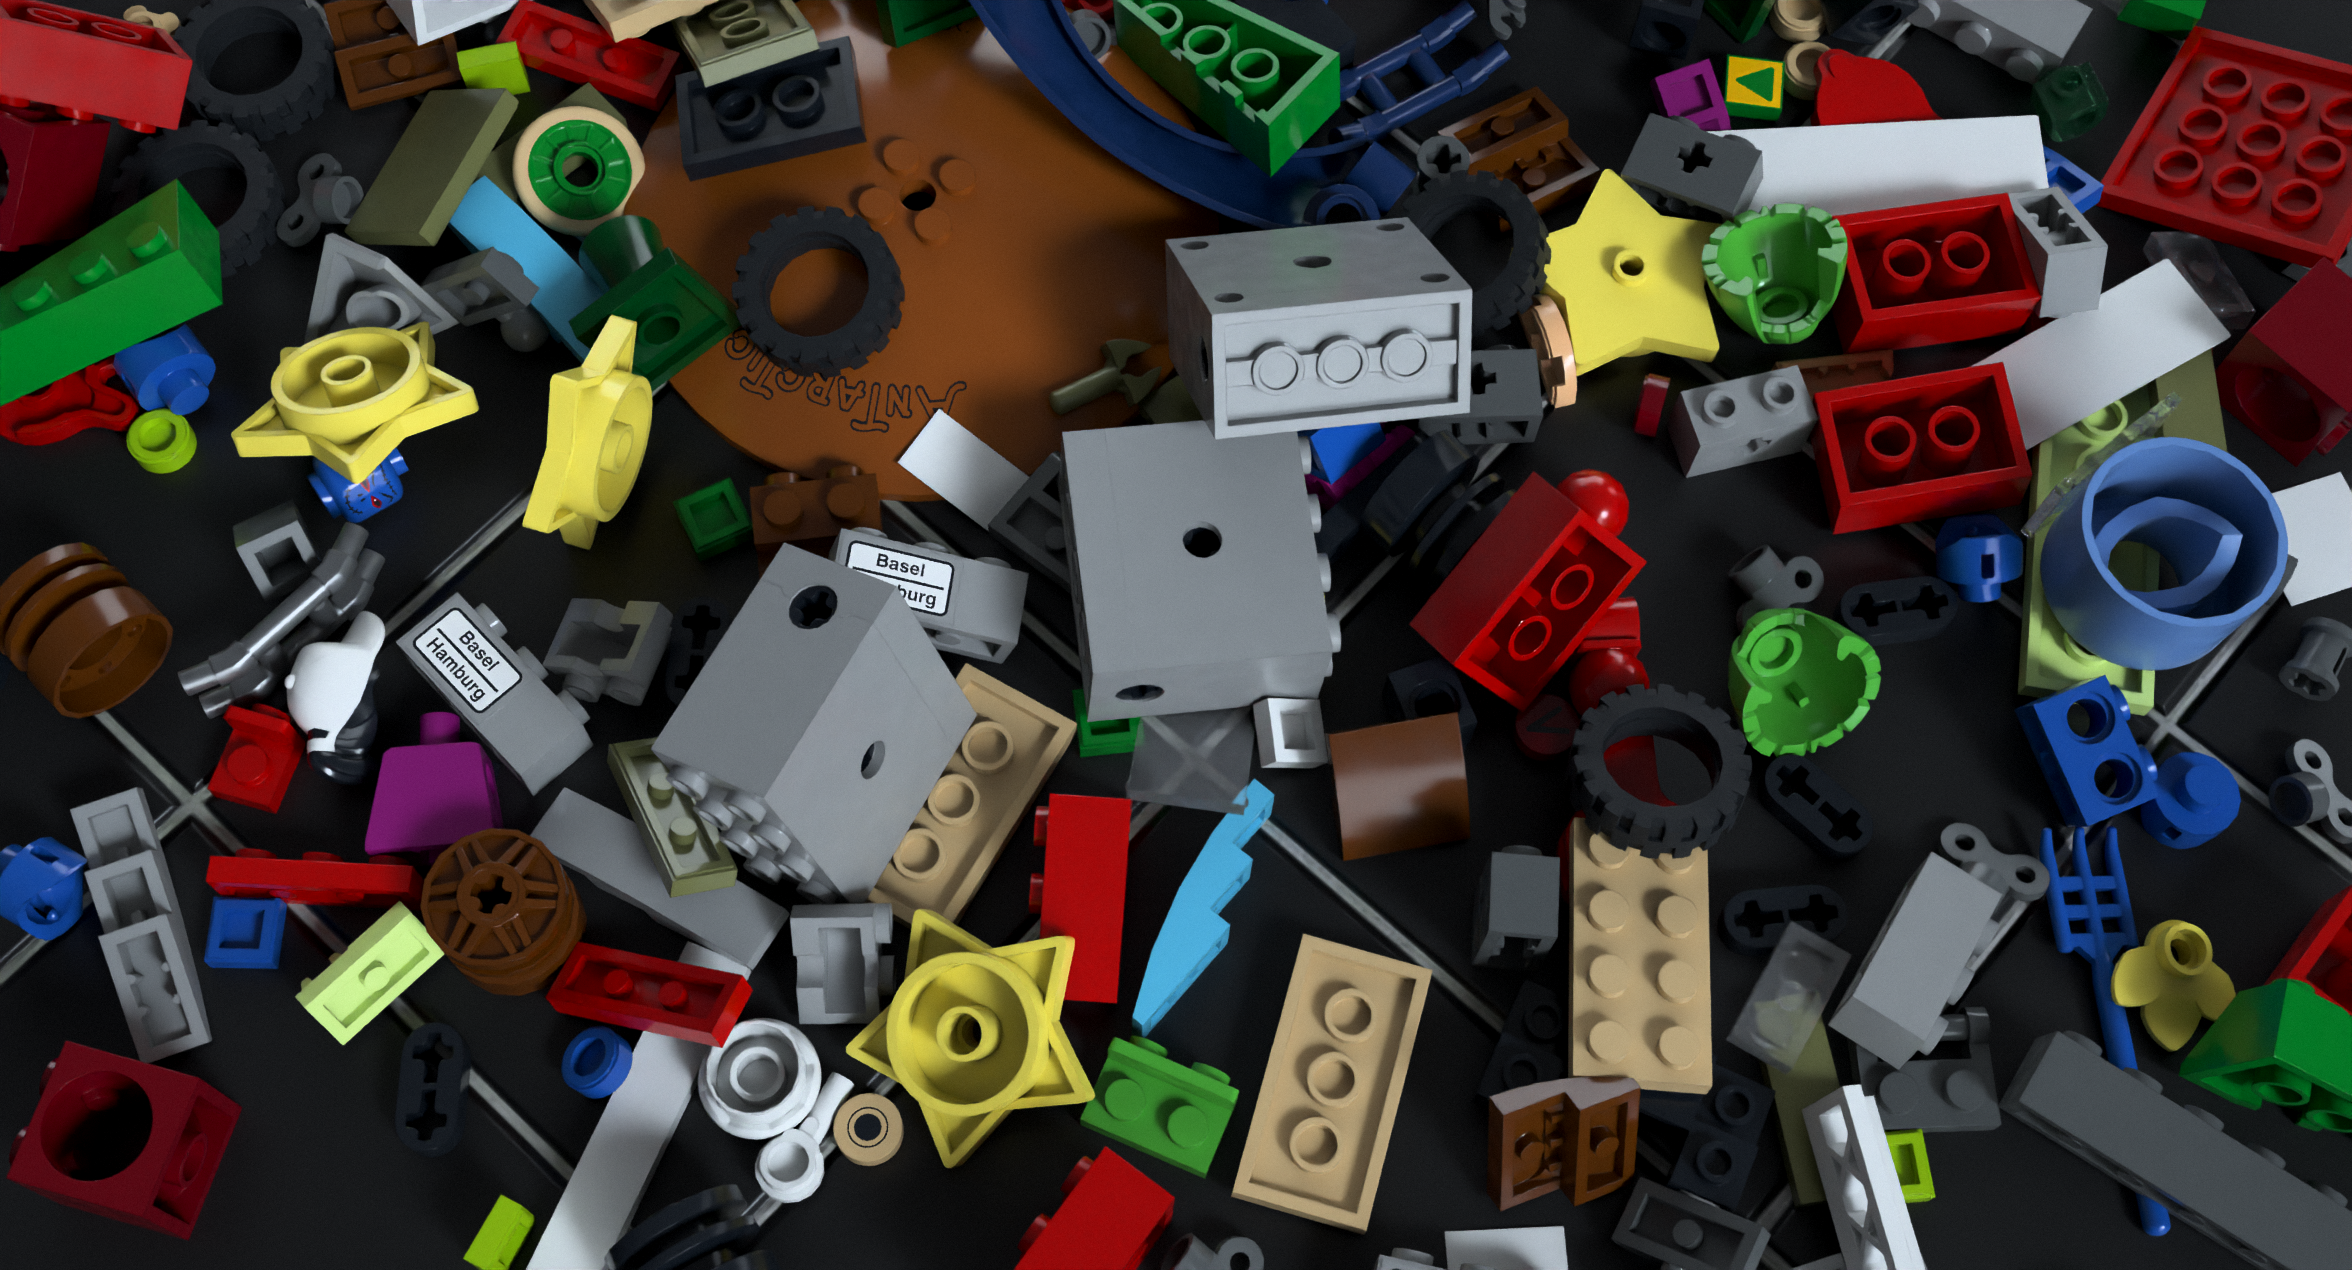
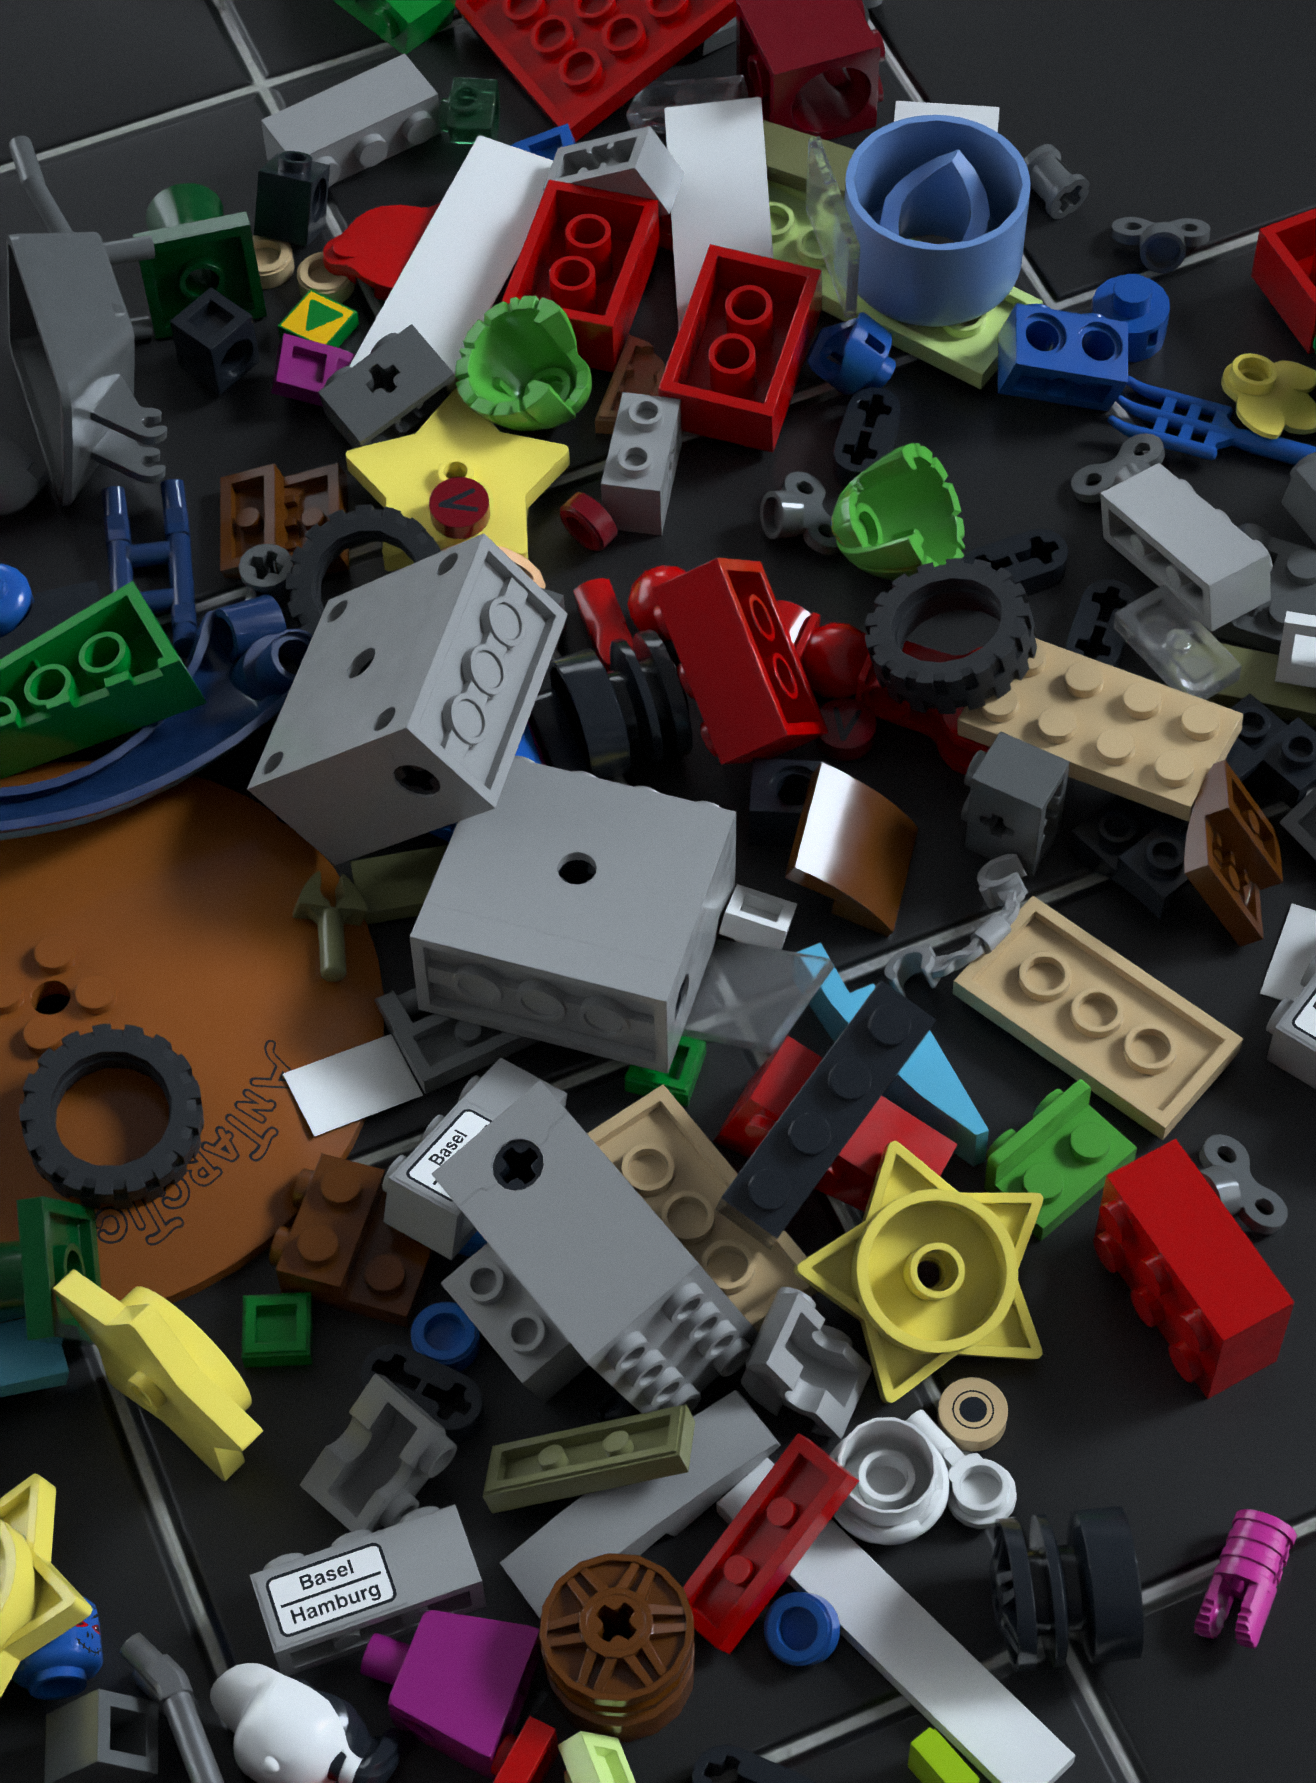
camera: 60 degrees left, 10 degrees down
(1069, 867) = (825, 1114): none -> black arch
(1425, 938) = (999, 886): none -> light grey piece
(1555, 460) = (601, 616): none -> red bar
(1590, 285) = (459, 508): none -> dark red tile

